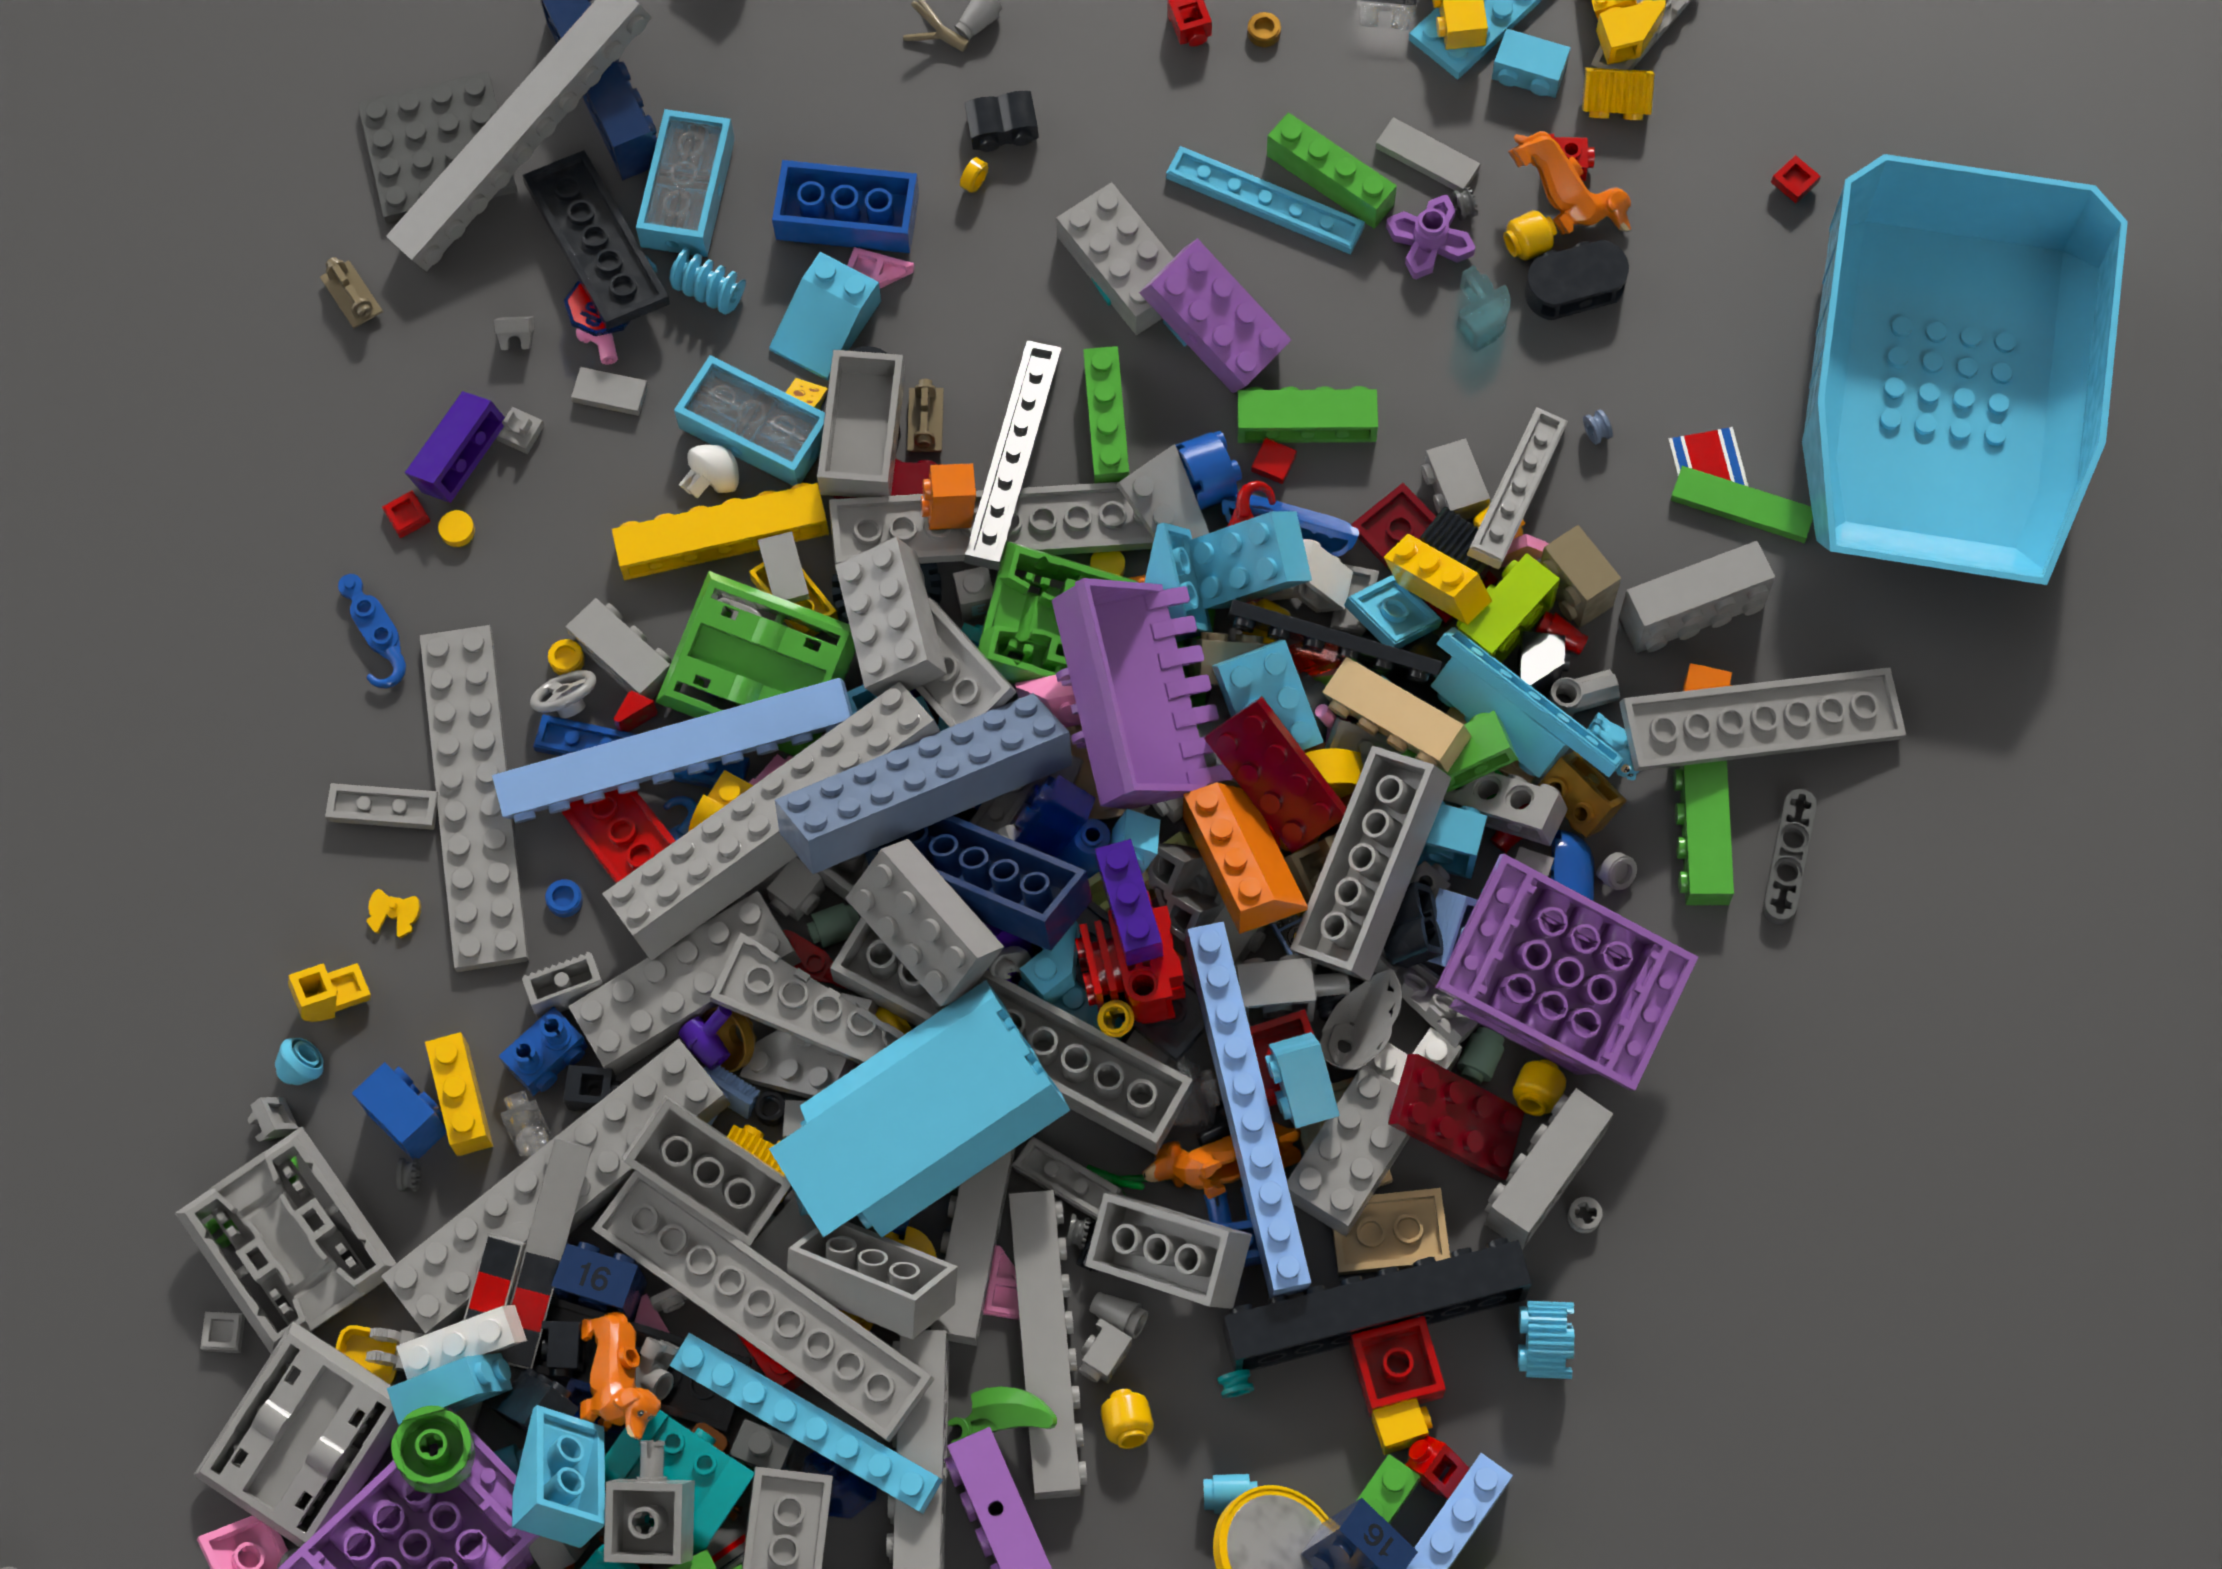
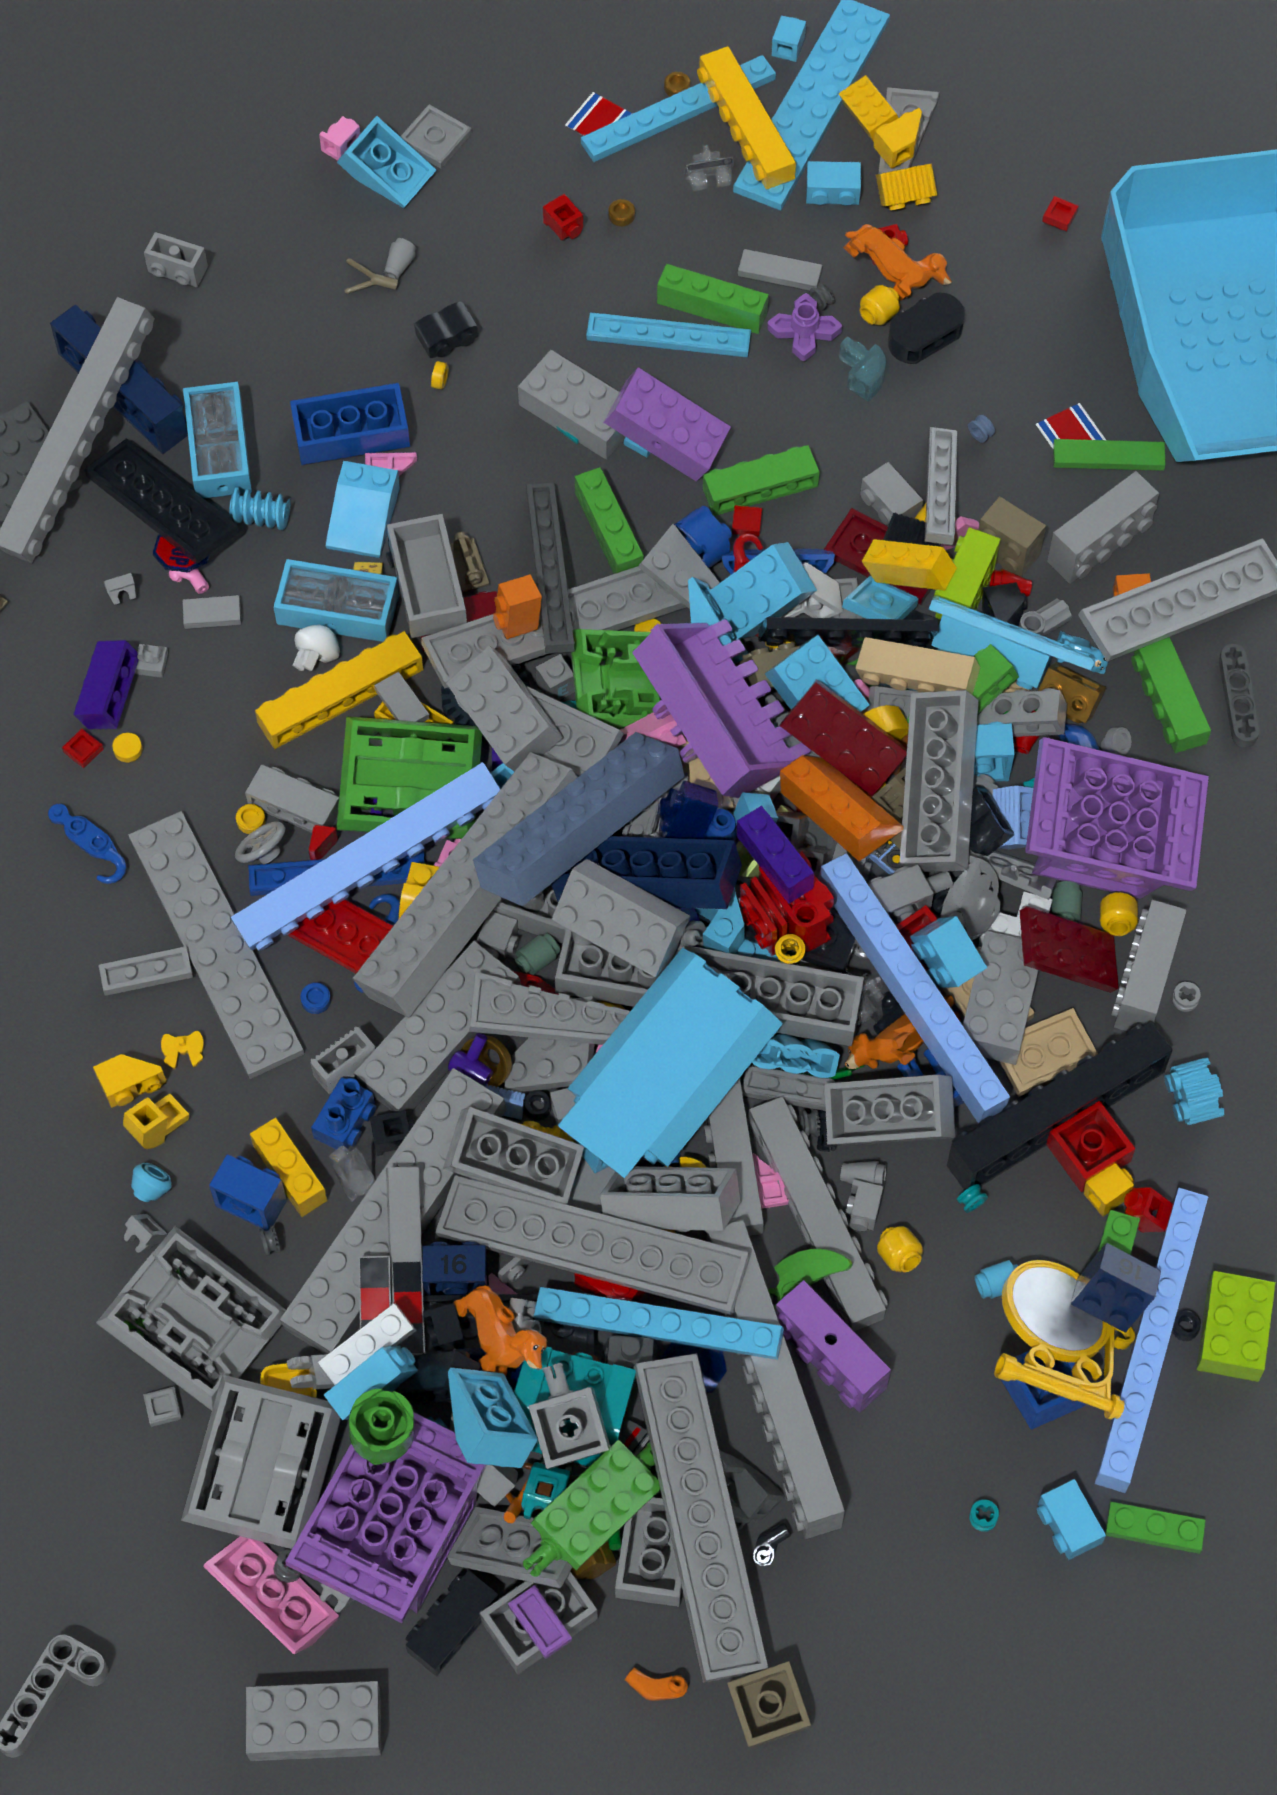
camera: 20 degrees left, 5 degrees down
(314, 929) = (127, 1078): none -> yellow slope
(1087, 1147) = (798, 1056): none -> medium azure brick

